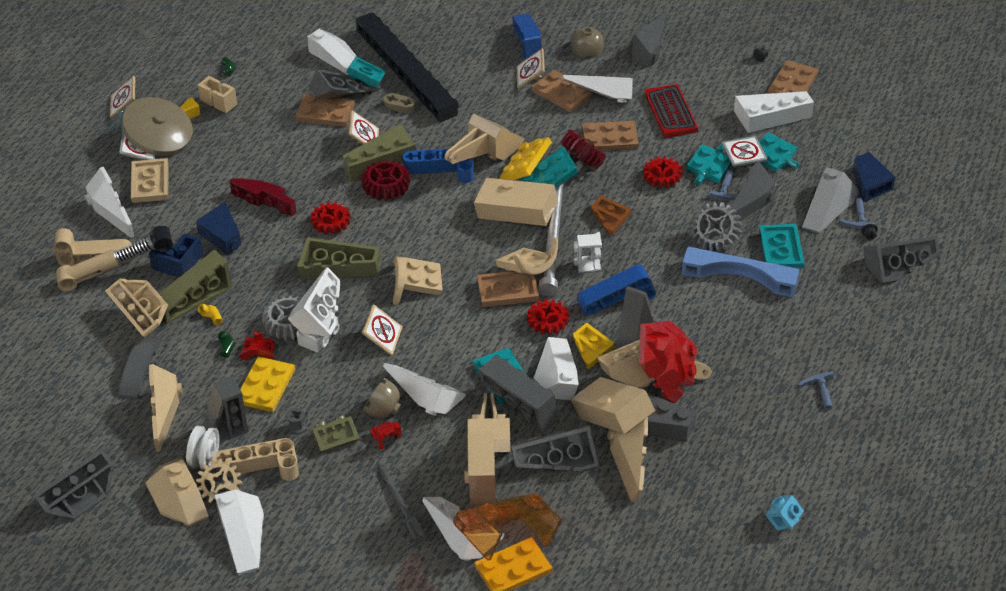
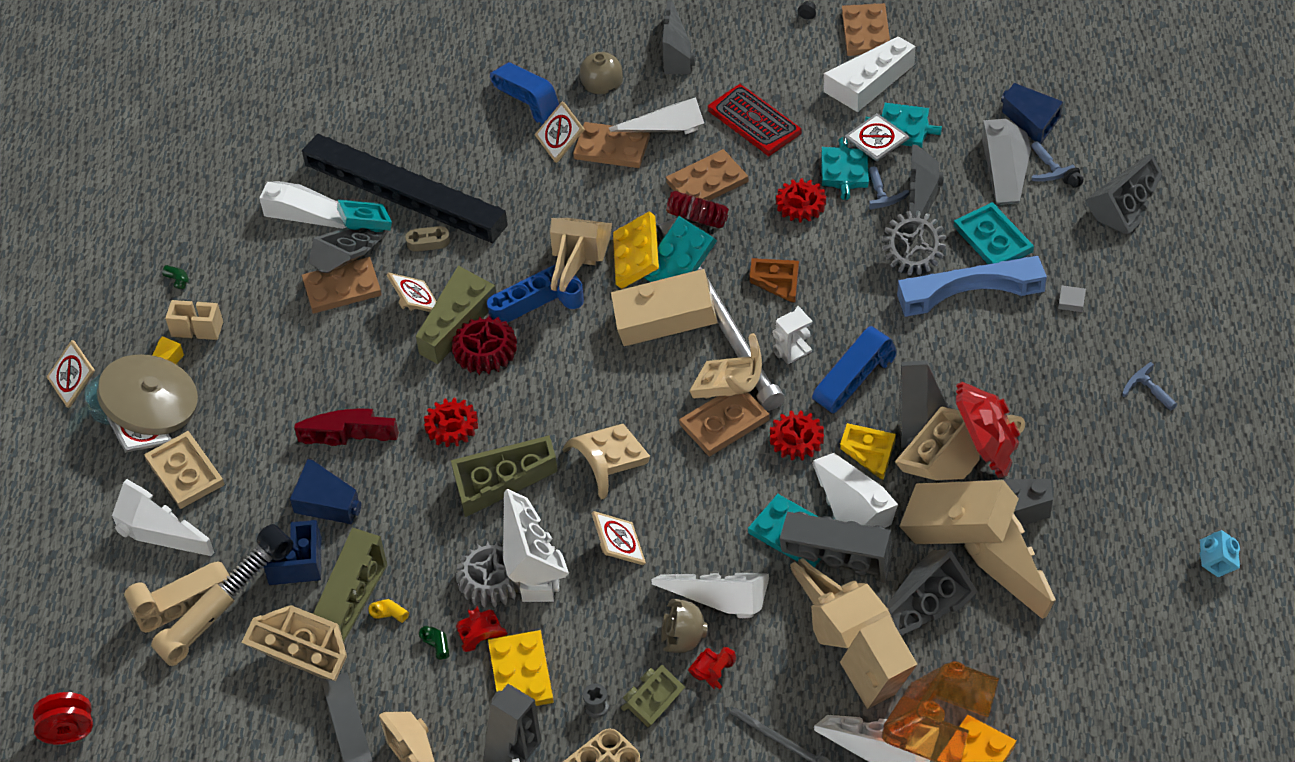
camera: 25 degrees left, 5 degrees up
(808, 309) = (1072, 298): none -> light grey tile

